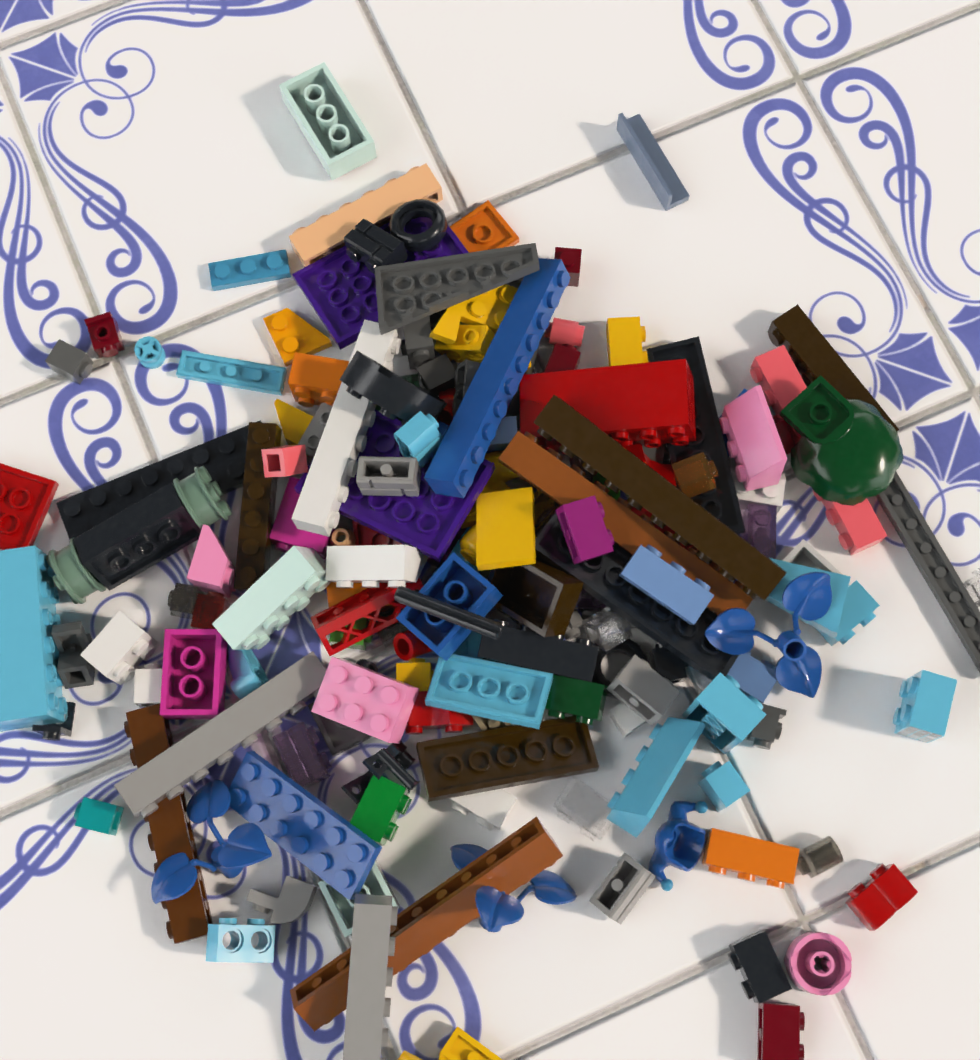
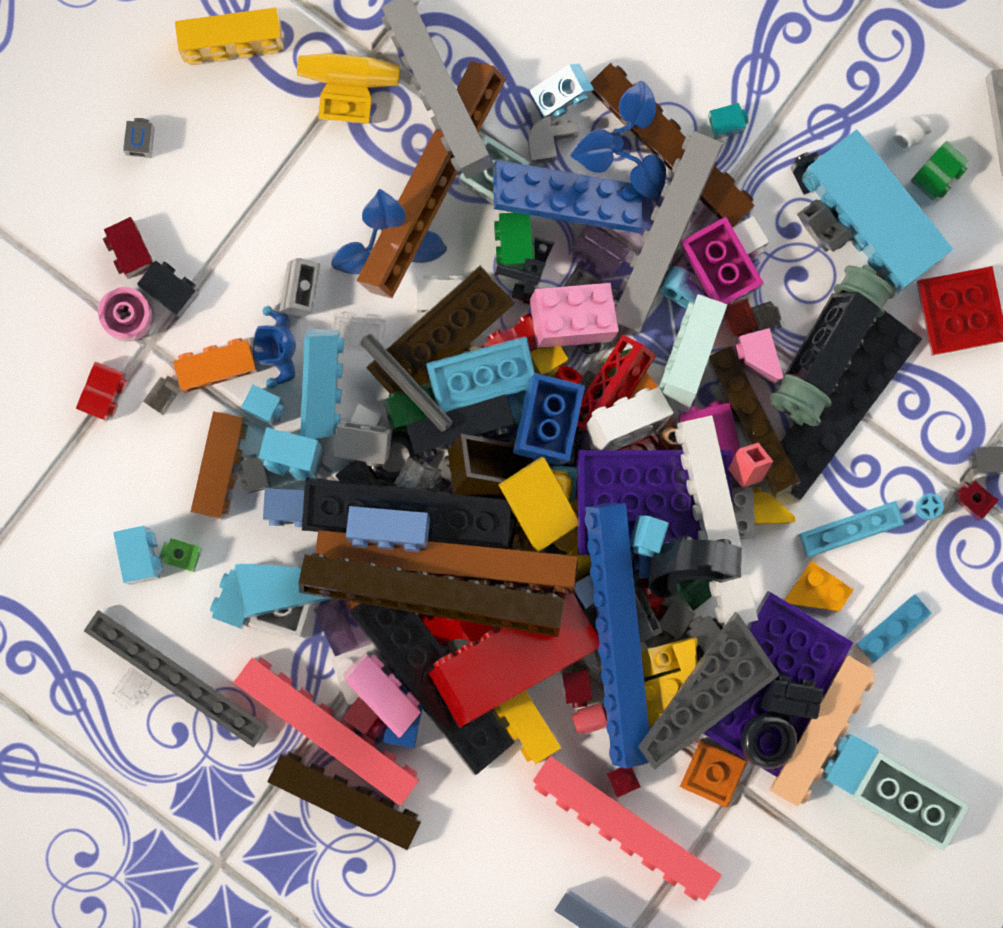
camera: 145 degrees right, 10 degrees up
(120, 649) = (790, 250): white brick -> none
(315, 379) = (769, 555): orange brick -> none
(358, 176) = (850, 763): none -> medium azure brick
(388, 476) = (655, 493): light grey brick -> none
(448, 612) = (544, 408): black axle -> none
(568, 724) = (406, 382): none -> dark grey axle
(585, 529) = (474, 534): magenta brick -> none
(587, 227) = (627, 828): none -> coral brick
(695, 474) = (413, 635): clear orange brick -> none
(797, 753) = (218, 465): none -> dark orange brick
(801, 665) = (248, 529): blue plant -> none
(843, 445) = (305, 738): dark green animal -> none
(867, 688) = (189, 559): none -> bright green brick

